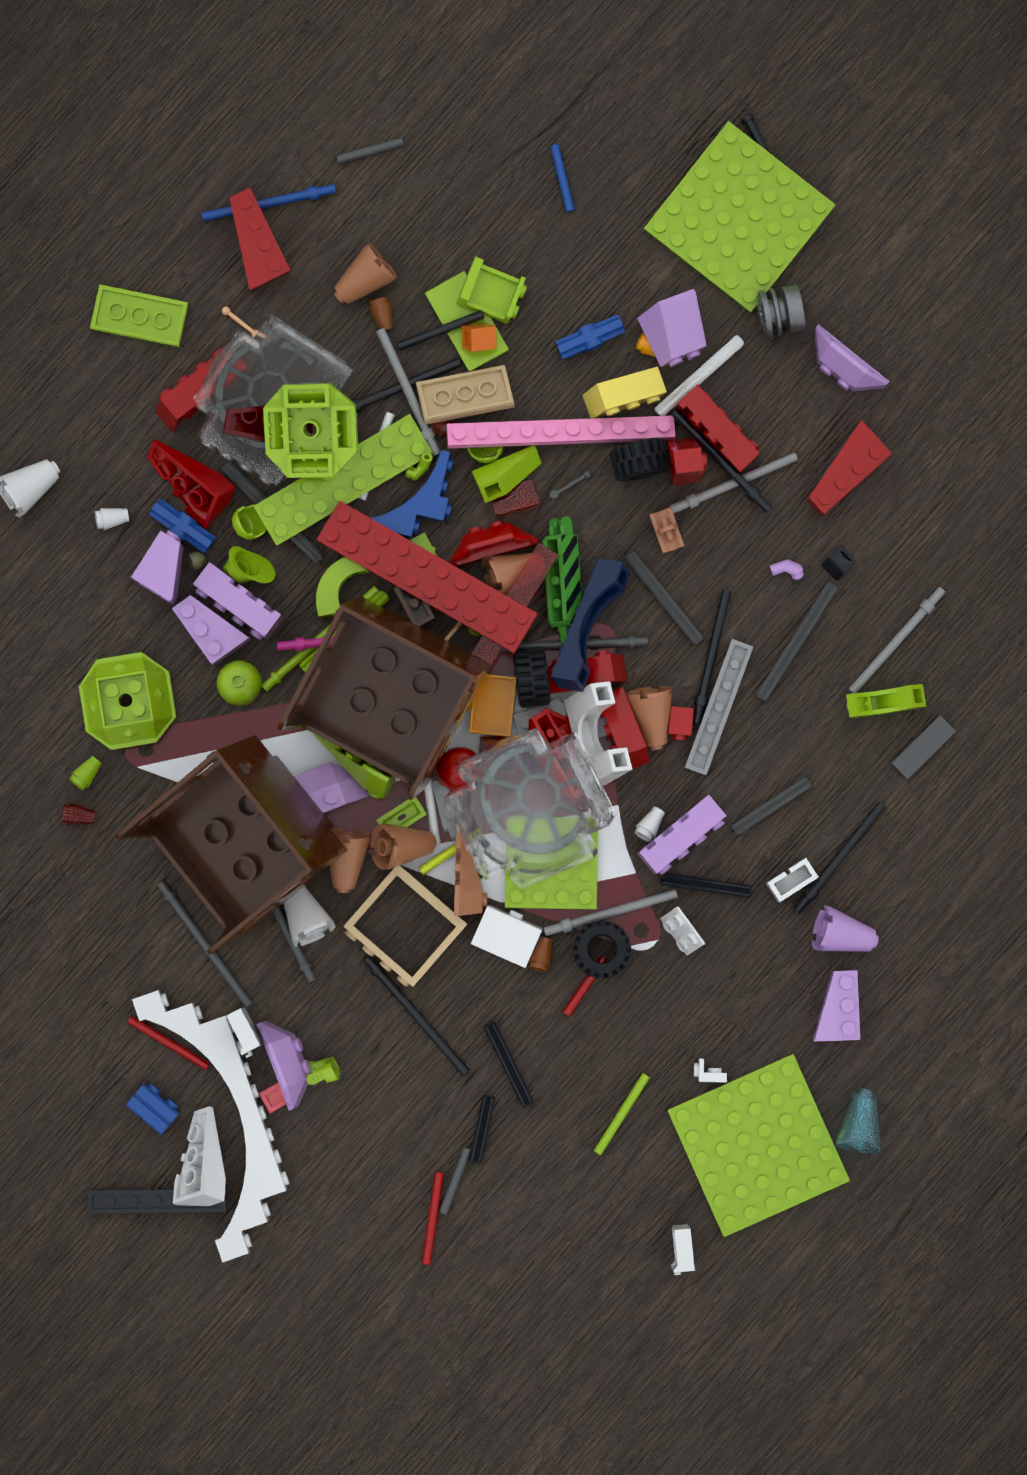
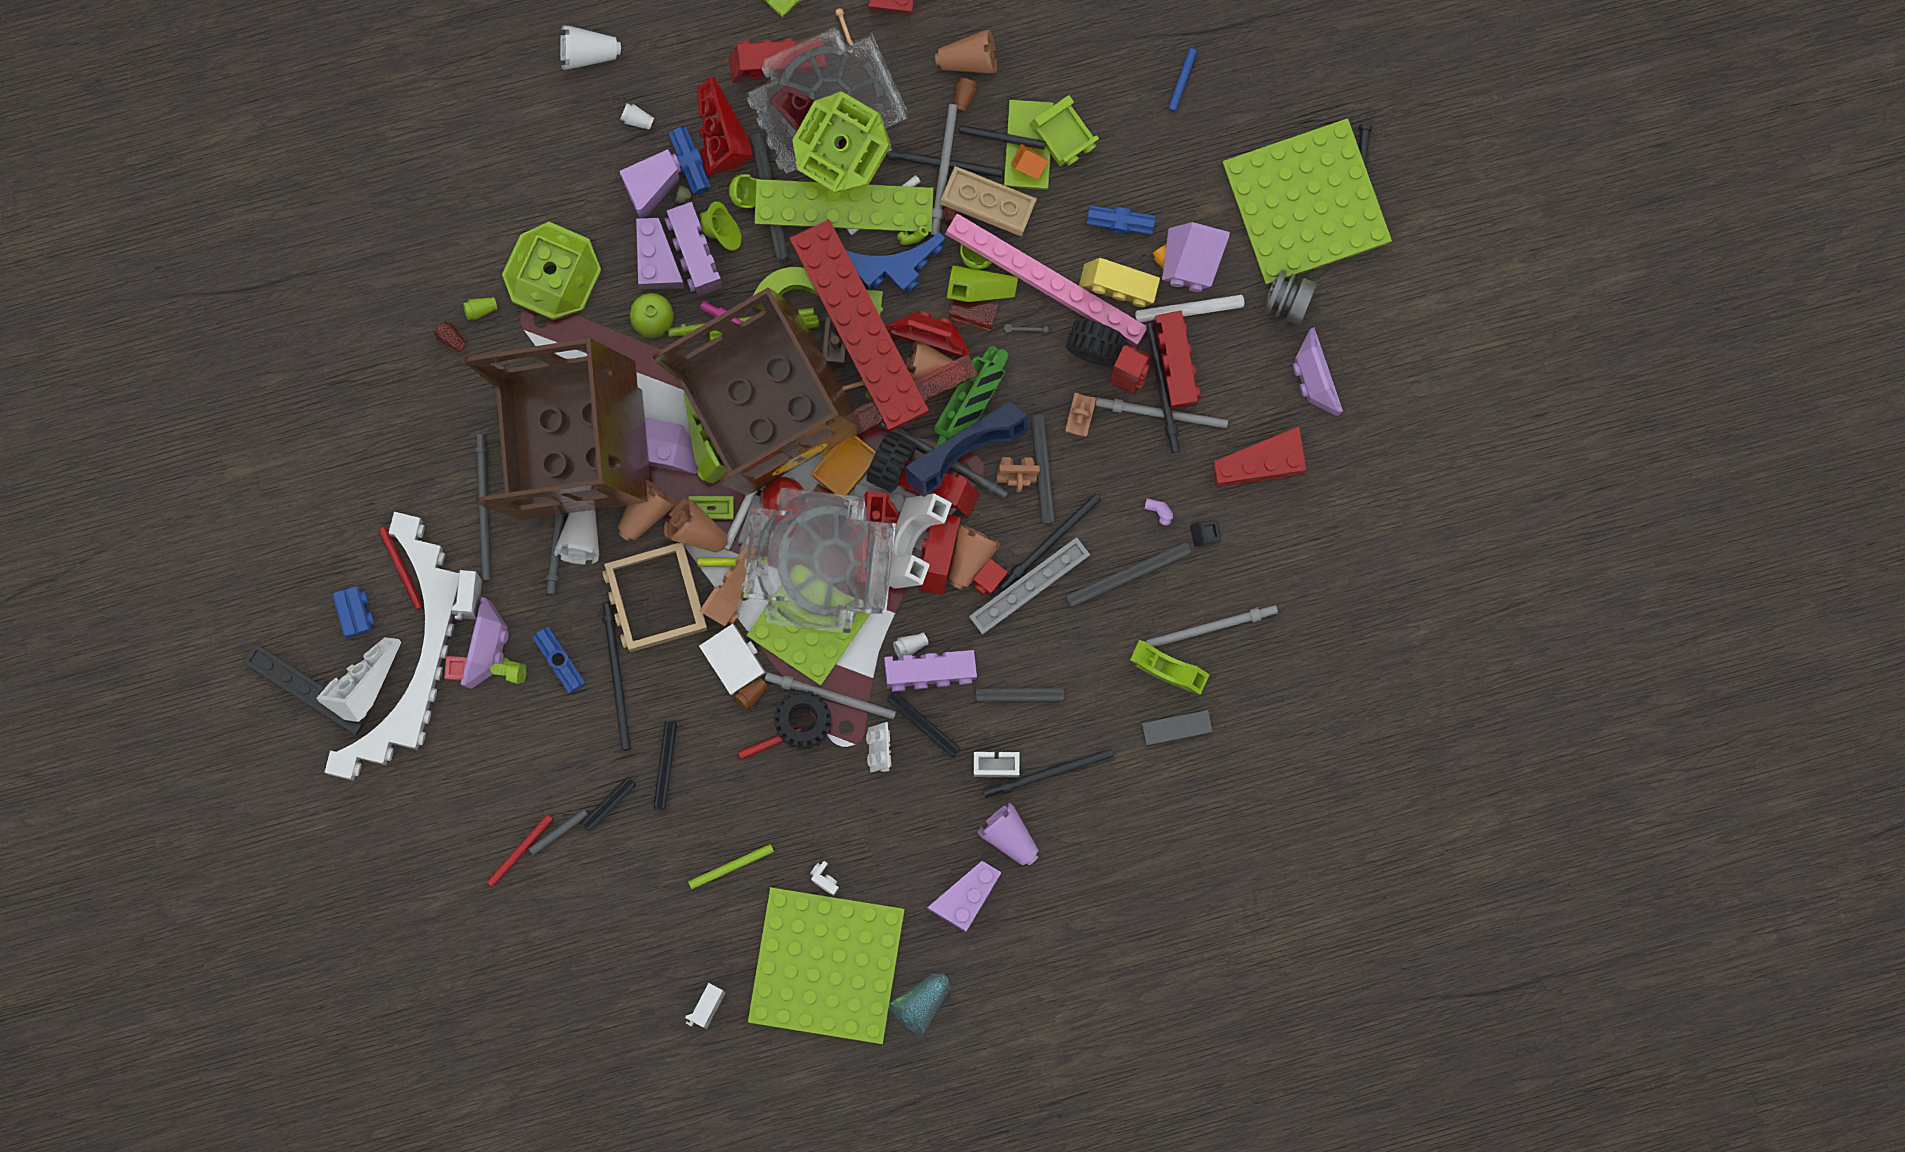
camera: 30 degrees right, 5 degrees down
(372, 1040) = (550, 648): none -> blue piece
(647, 618) = (1017, 475): none -> nougat hips

